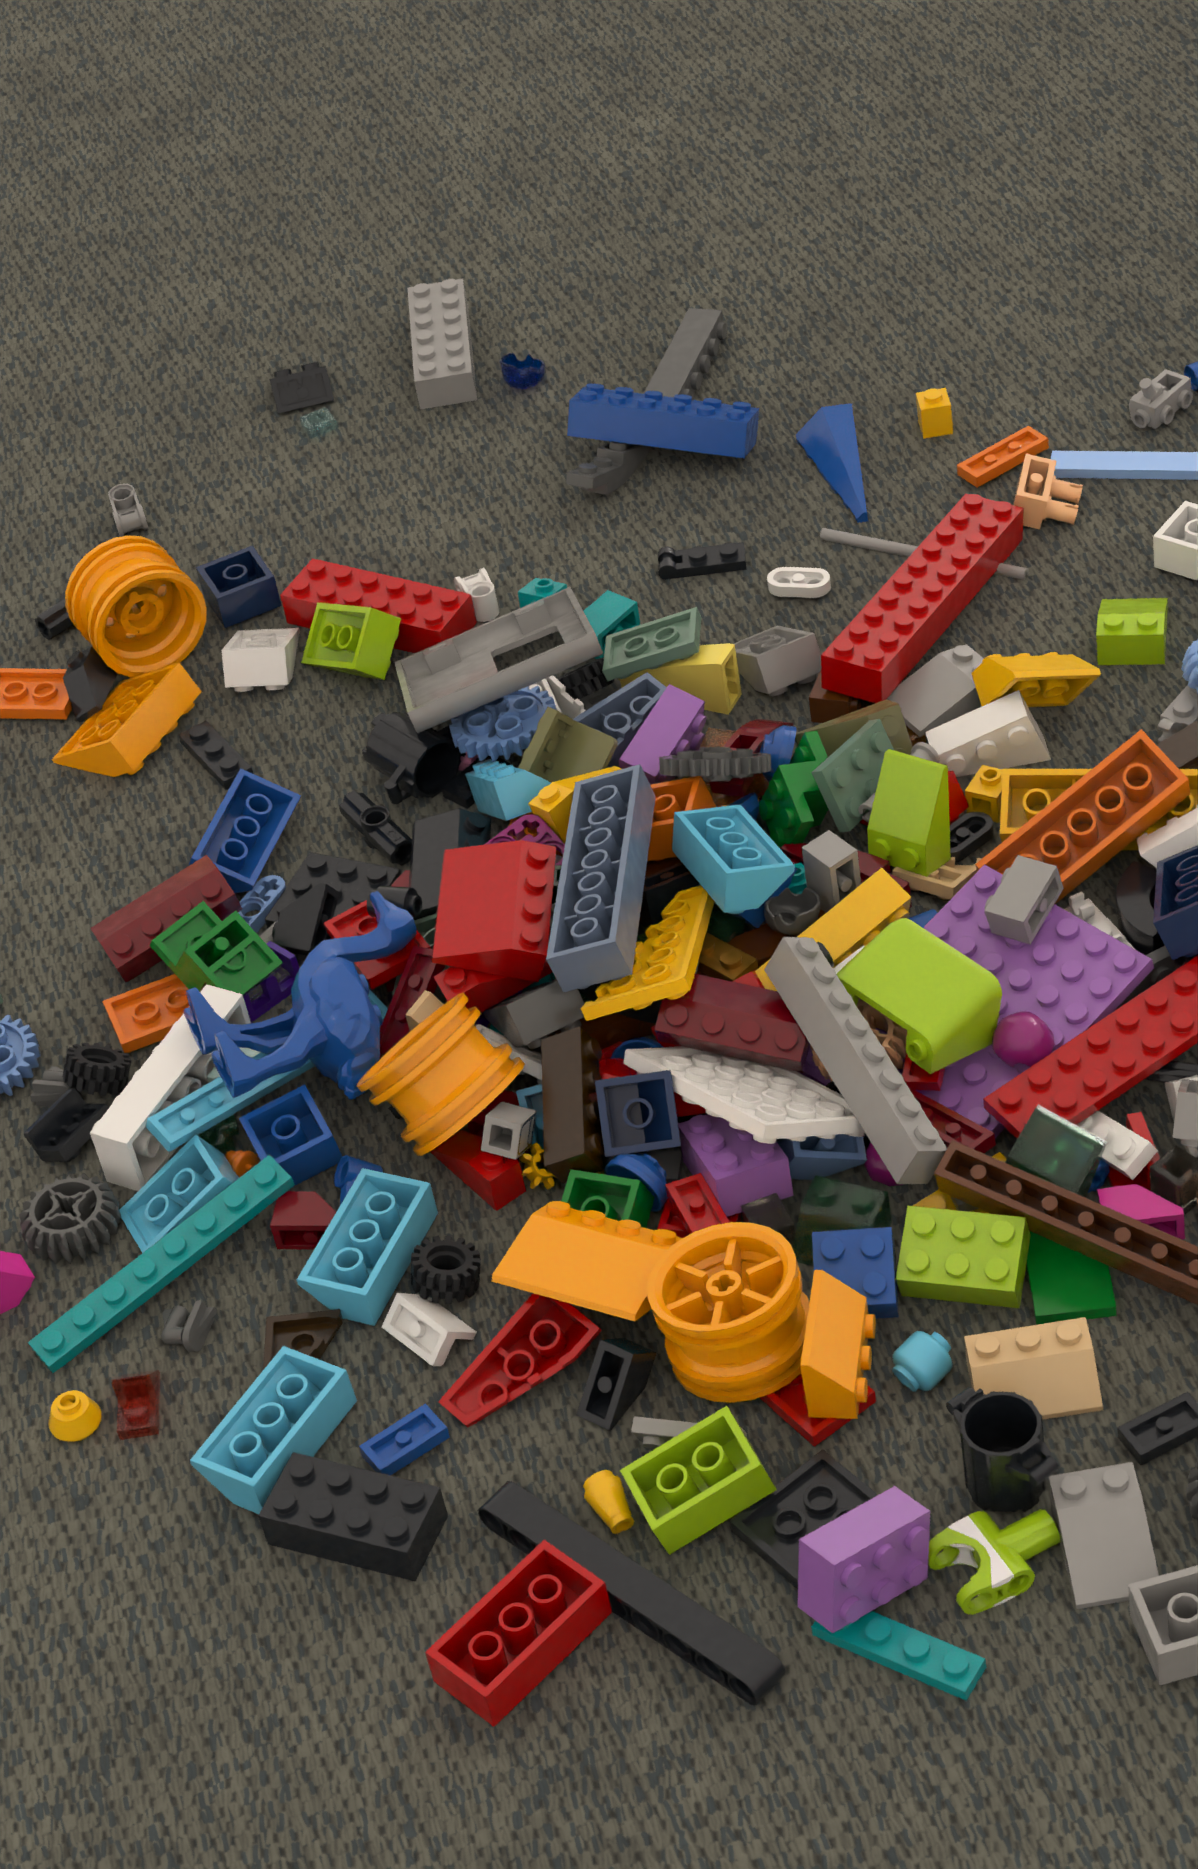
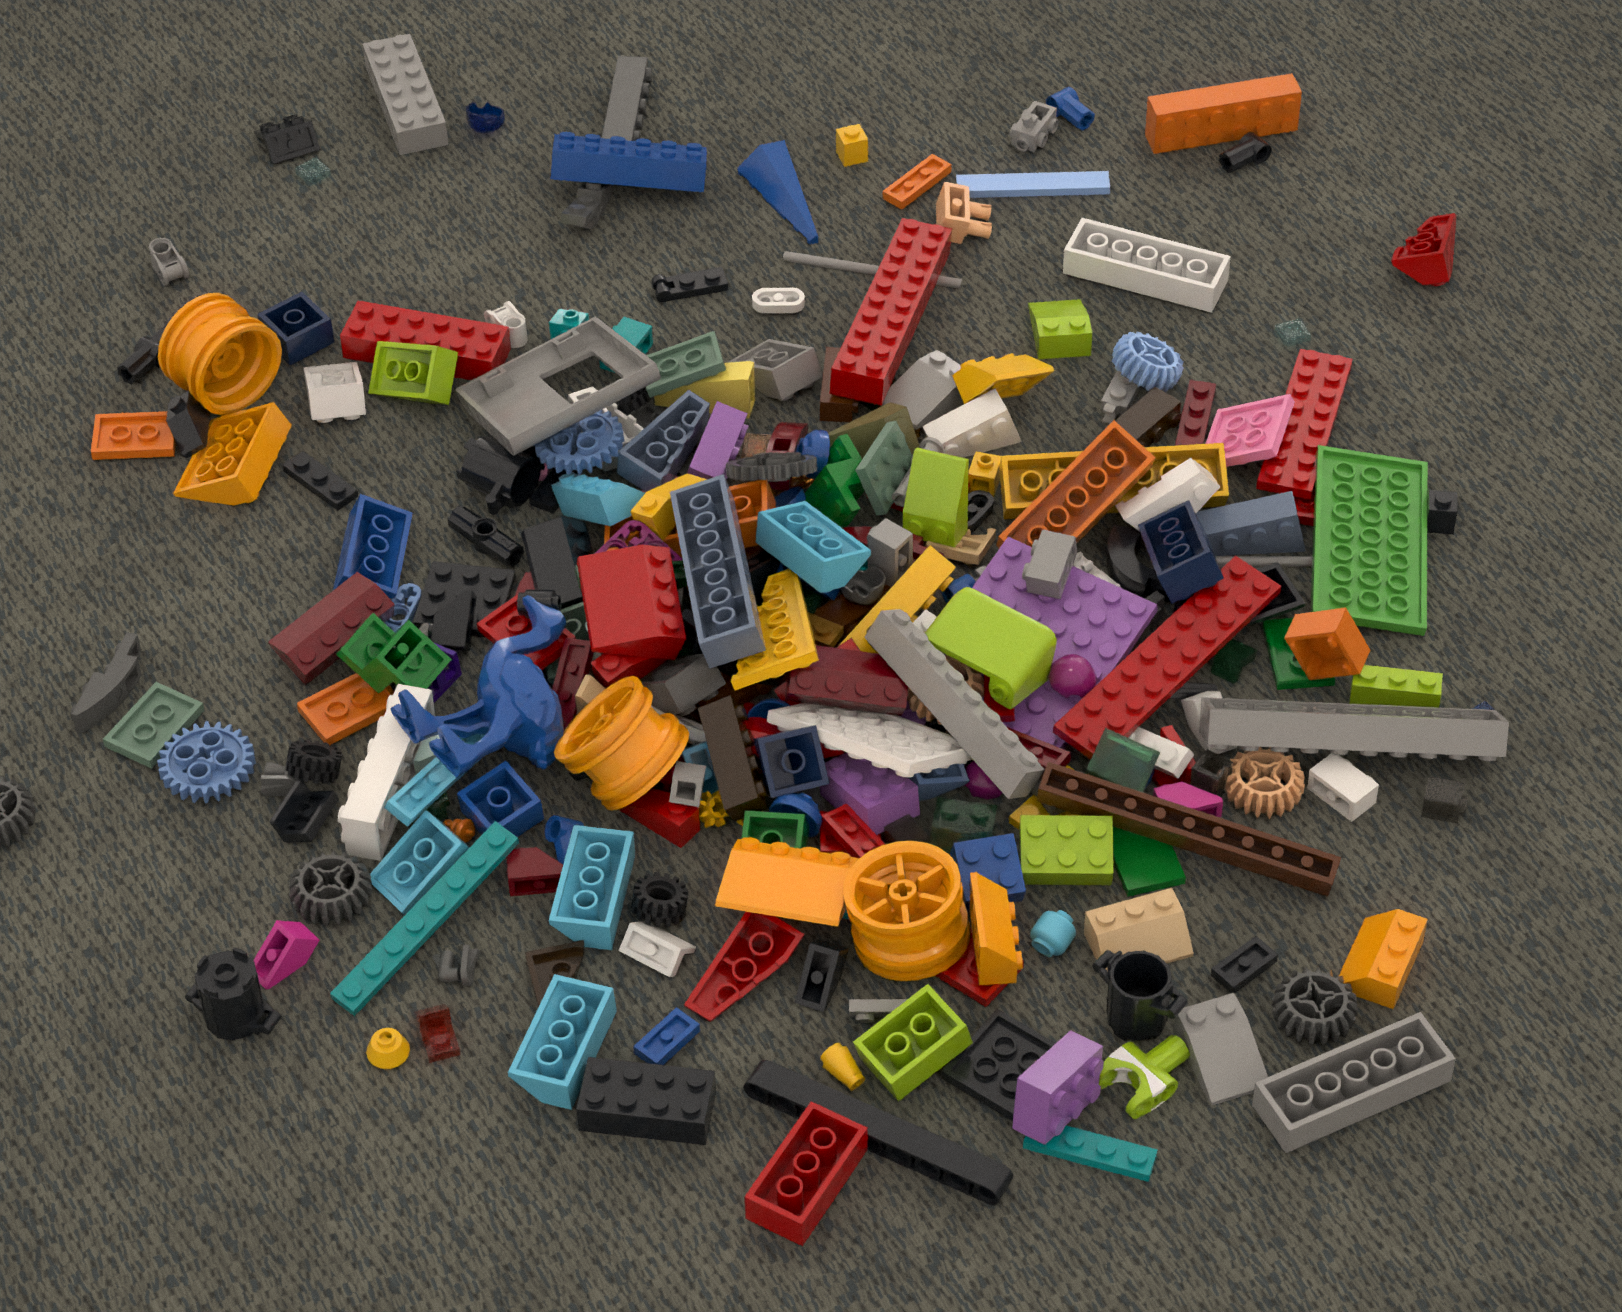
camera: 20 degrees left, 5 degrees up
(566, 748) = (646, 462): olive bracket -> none

